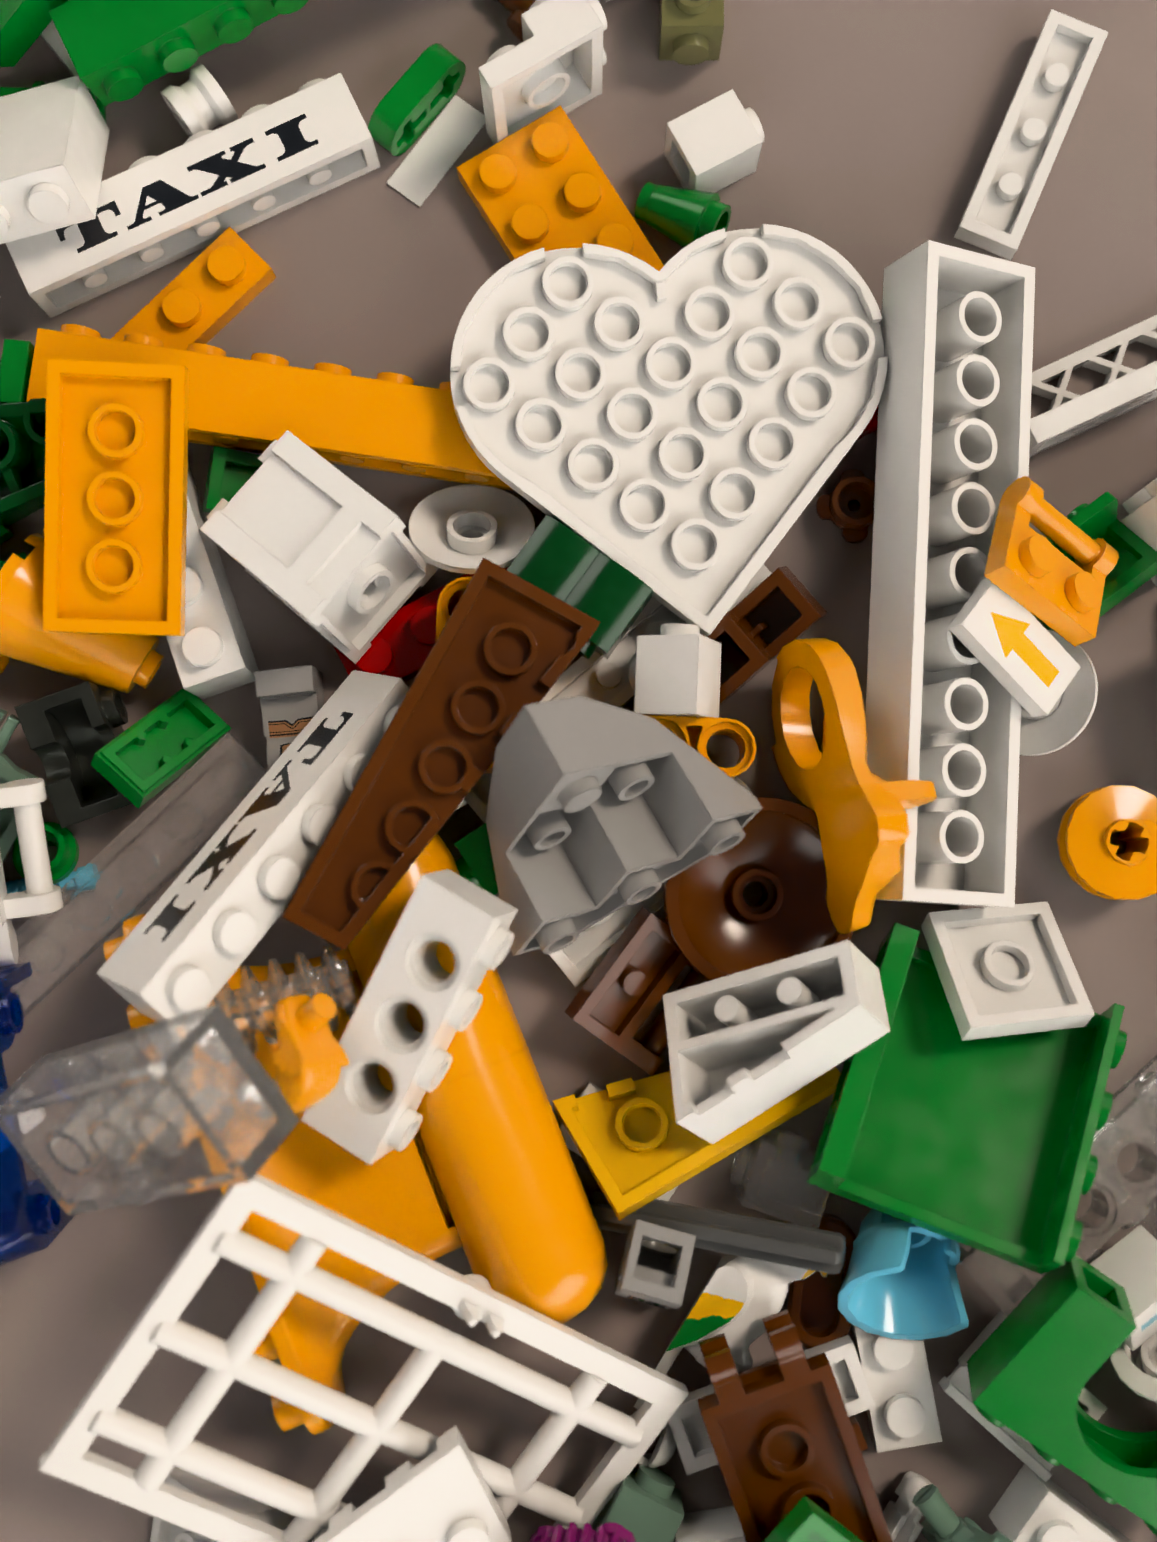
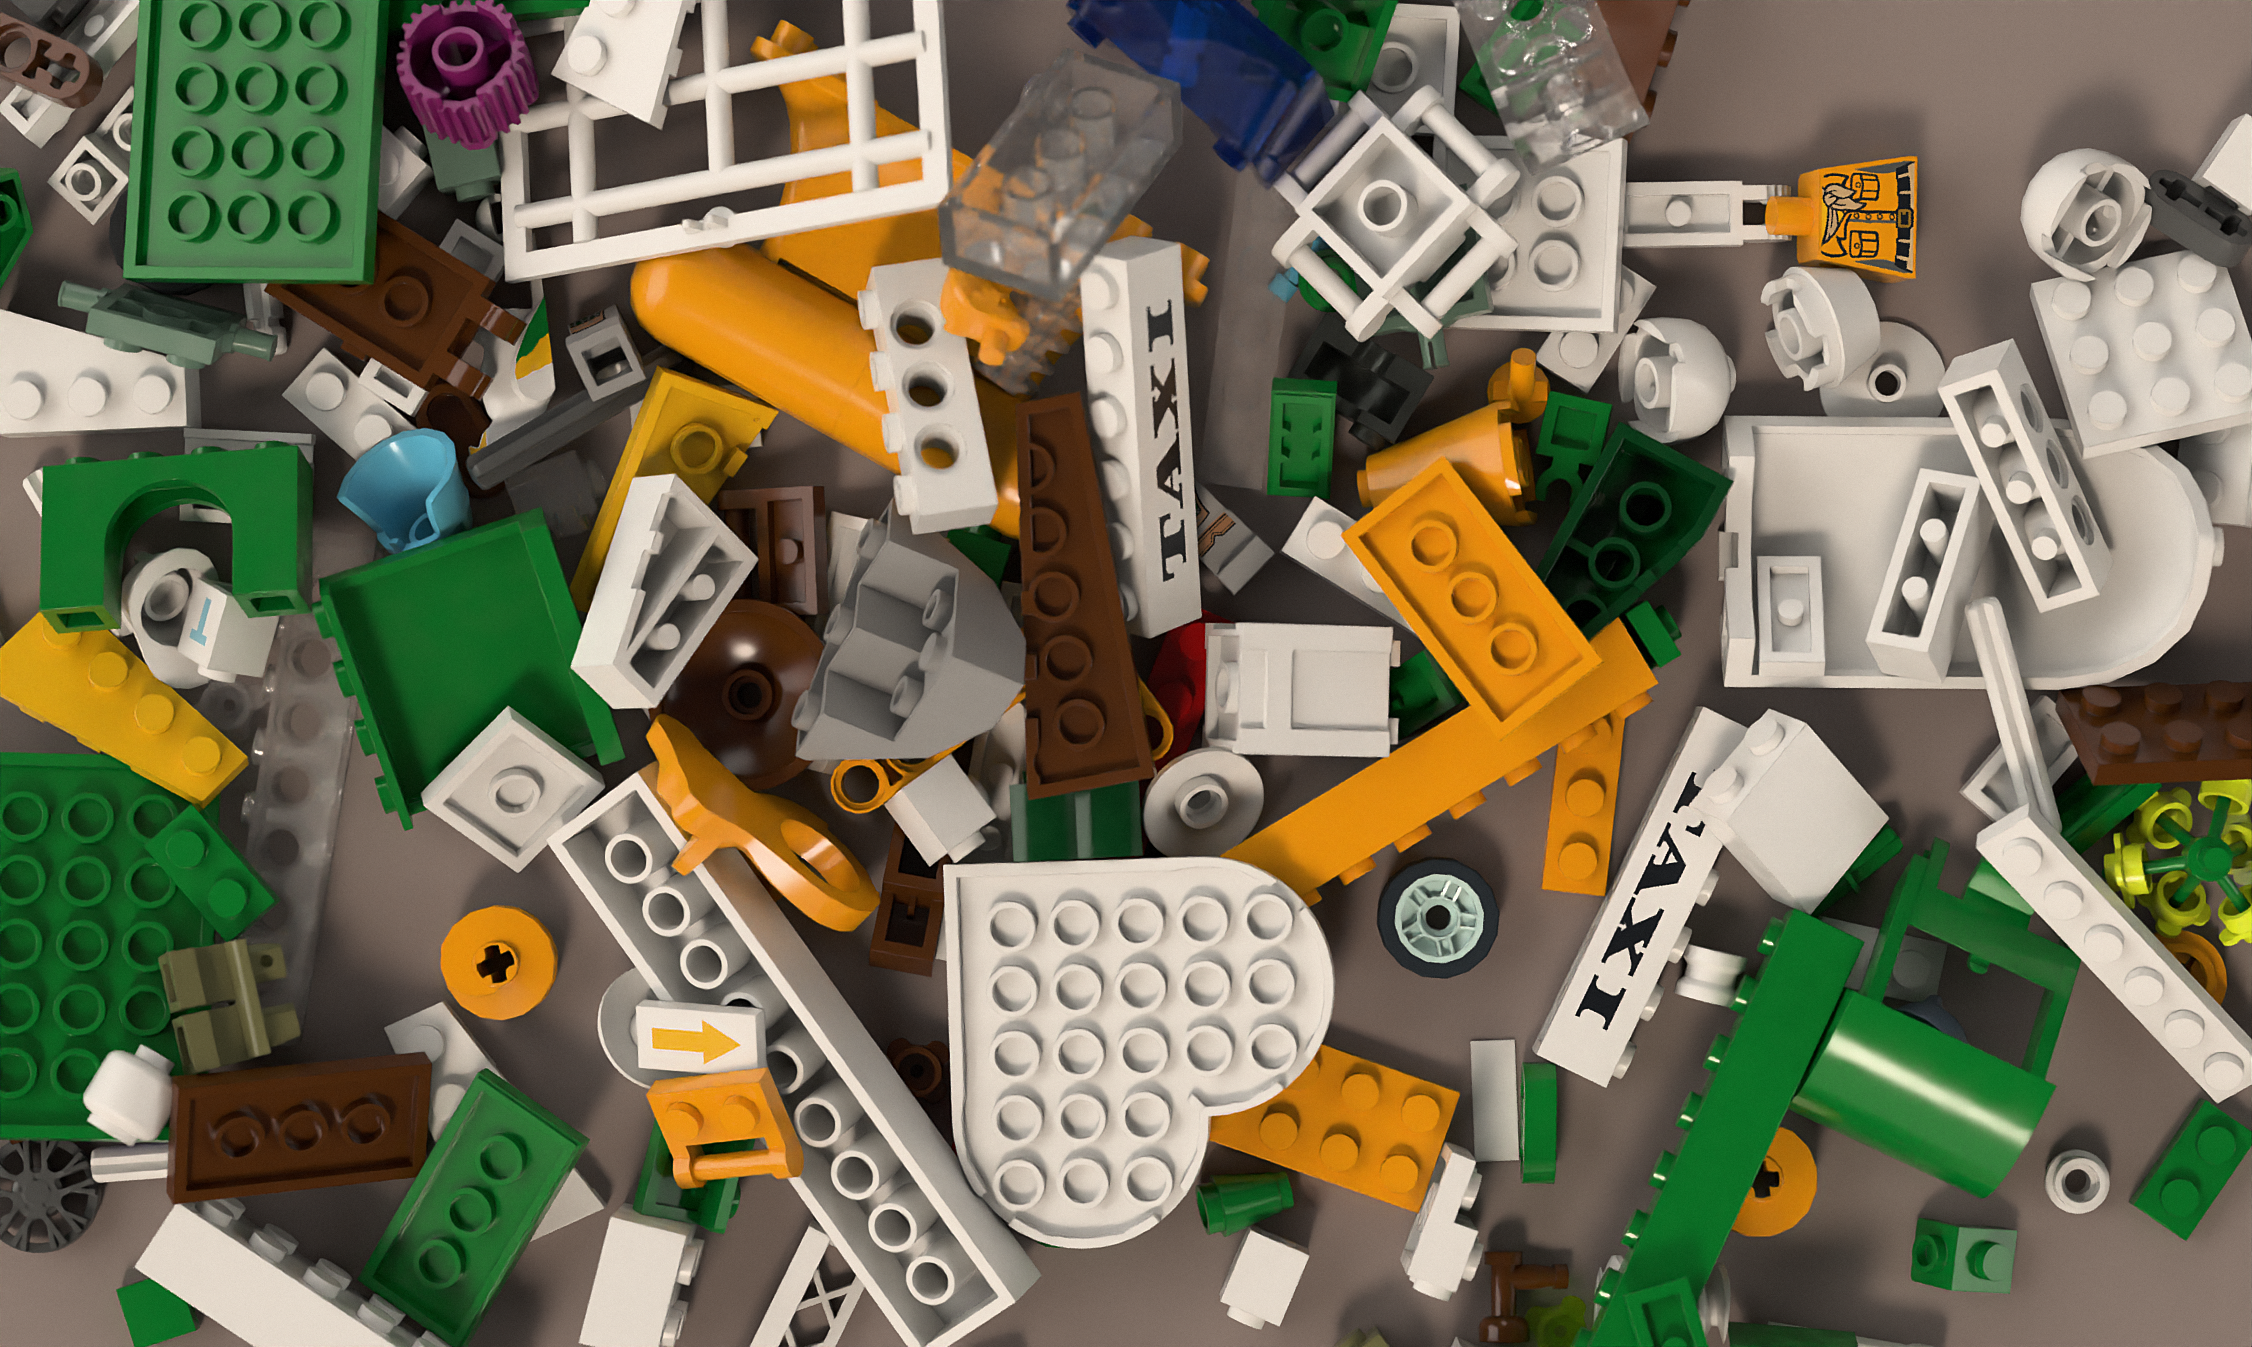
camera: 140 degrees right, 5 degrees up
(344, 285) = (1469, 928): none -> wheel

